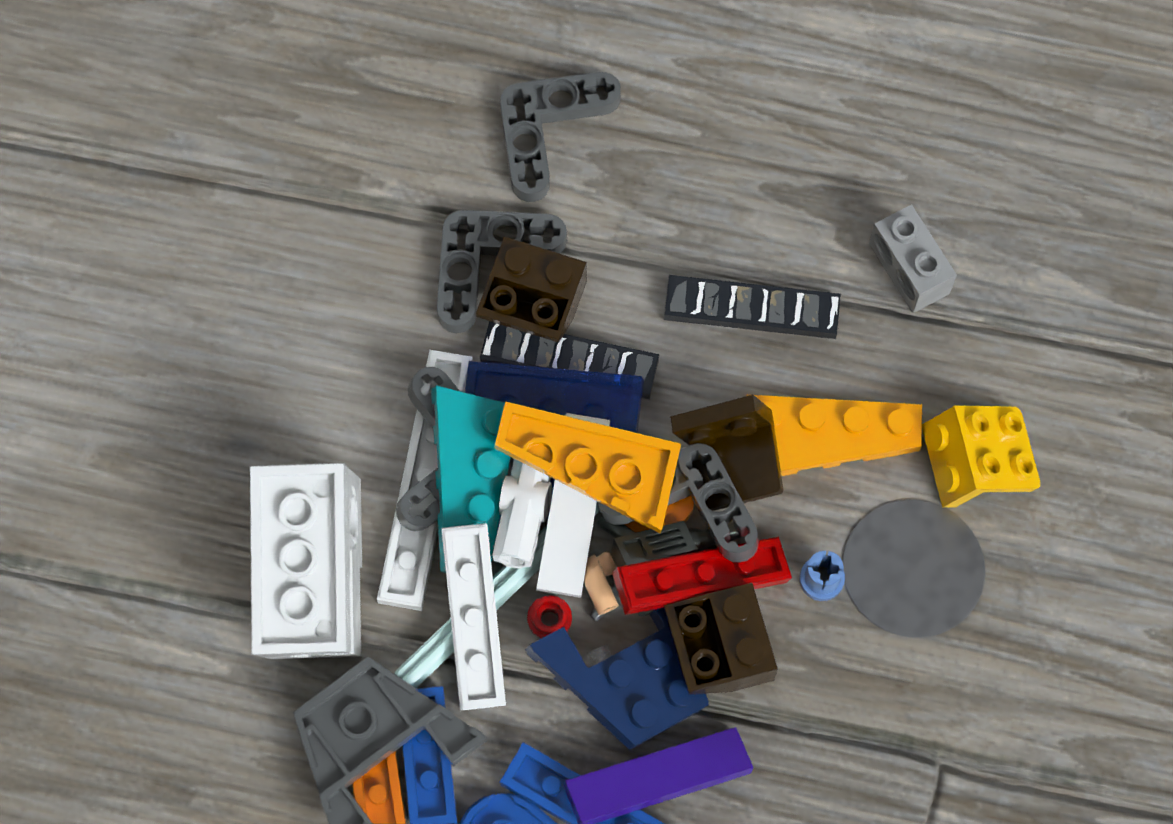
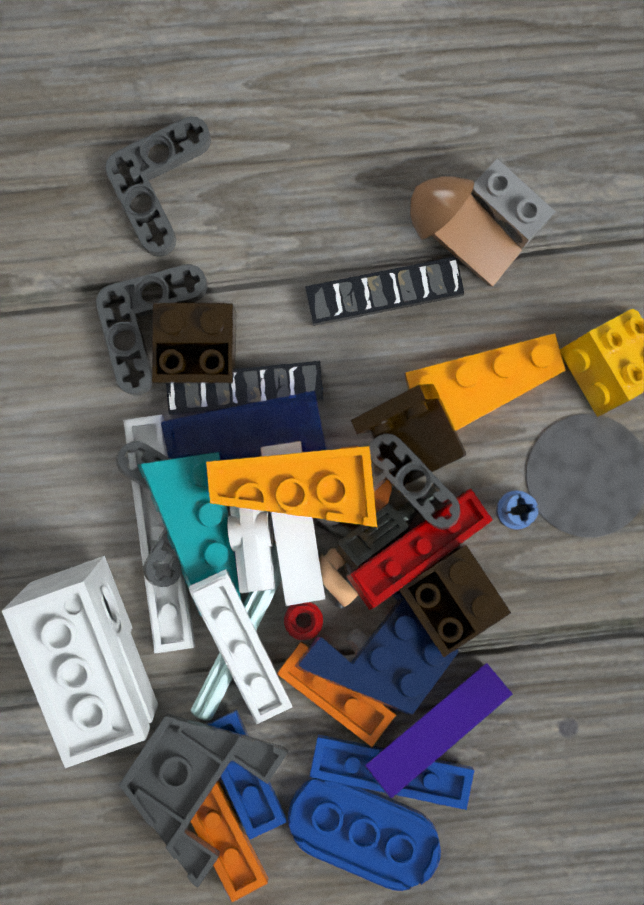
camera: 20 degrees left, 15 degrees up
(561, 712) = (357, 713): none -> orange plate
(856, 266) = (452, 216): none -> medium nougat piece

